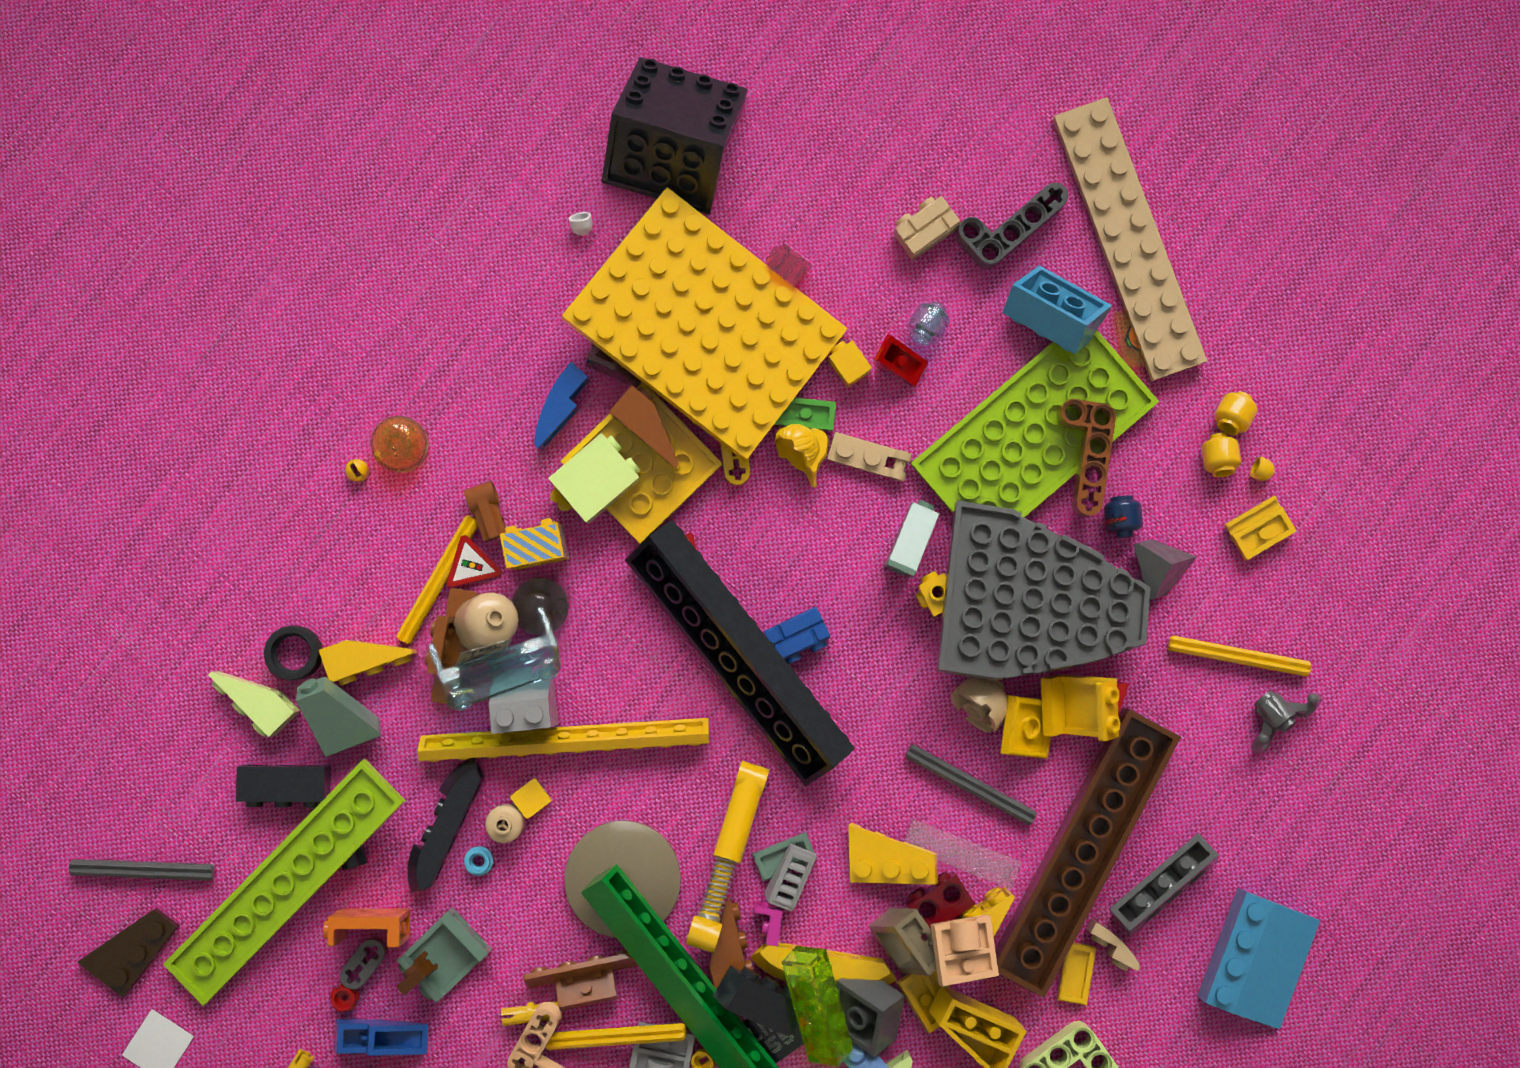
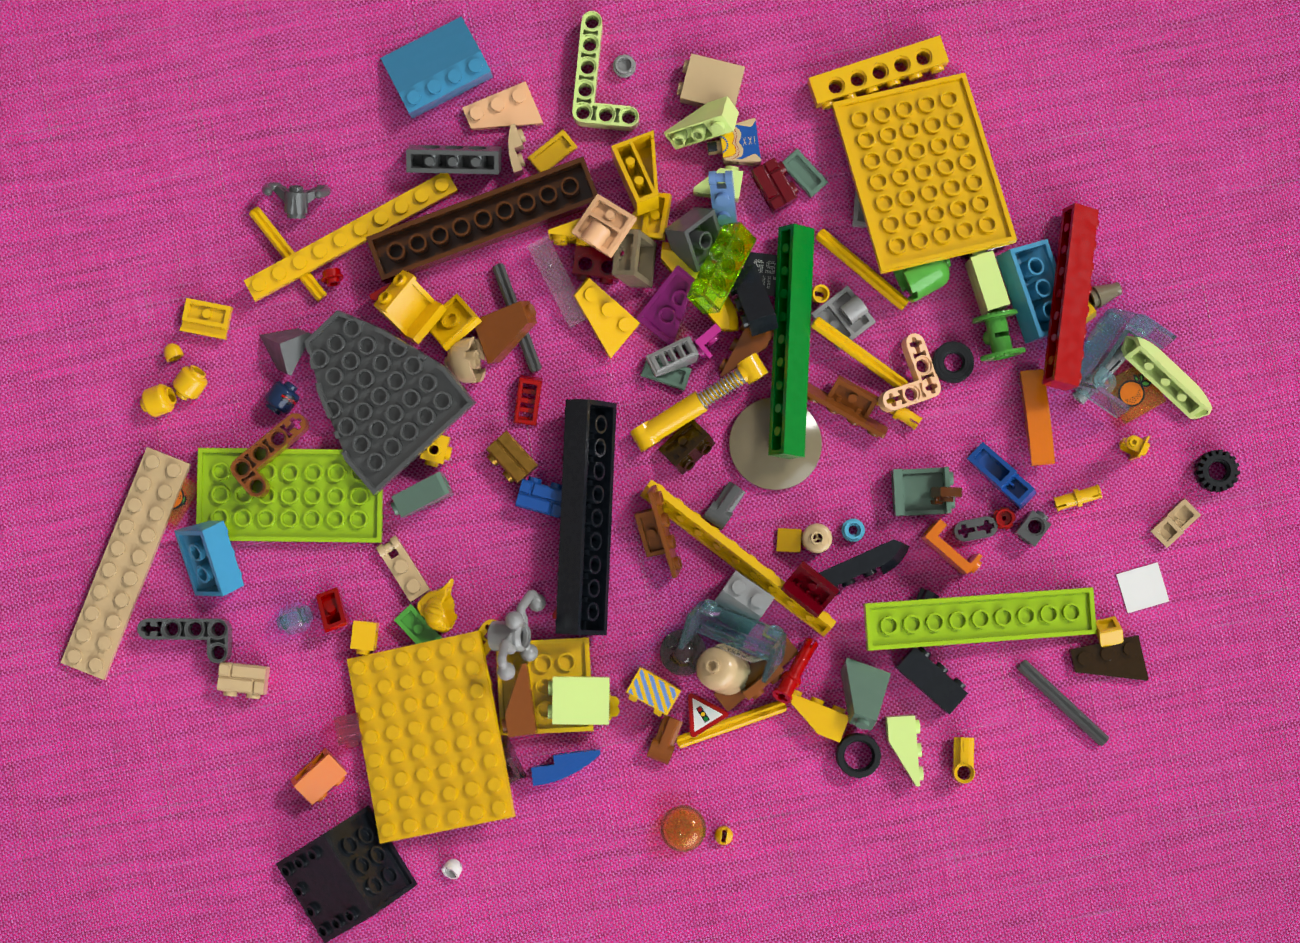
camera: 130 degrees left, 0 degrees up
(152, 976) = (1109, 631): none -> yellow slope
(192, 737) = (963, 756): none -> yellow piece
(317, 1003) = (1023, 532): none -> dark grey brick
(414, 671) = (791, 679): none -> red pin
(467, 770) = (809, 589): none -> dark red bracket
(618, 770) = (722, 508): none -> dark grey piece
(663, 696) = (655, 532): none -> dark orange bracket
(703, 803) = (687, 446): none -> dark brown bracket
(708, 484) = (515, 635): none -> light grey wheel
(776, 199) = (319, 777): none -> orange brick
(837, 923) = (667, 306): none -> magenta wing
(859, 648) = (511, 457): none -> pearl gold brick
(905, 736) = (518, 408): none -> red slope
(972, 764) = (505, 329): none -> dark orange slope
(1159, 974) = (504, 109): none -> light nougat wing
(1178, 670) = (332, 277): none -> red plate
(1195, 725) = (350, 236): none -> yellow plate

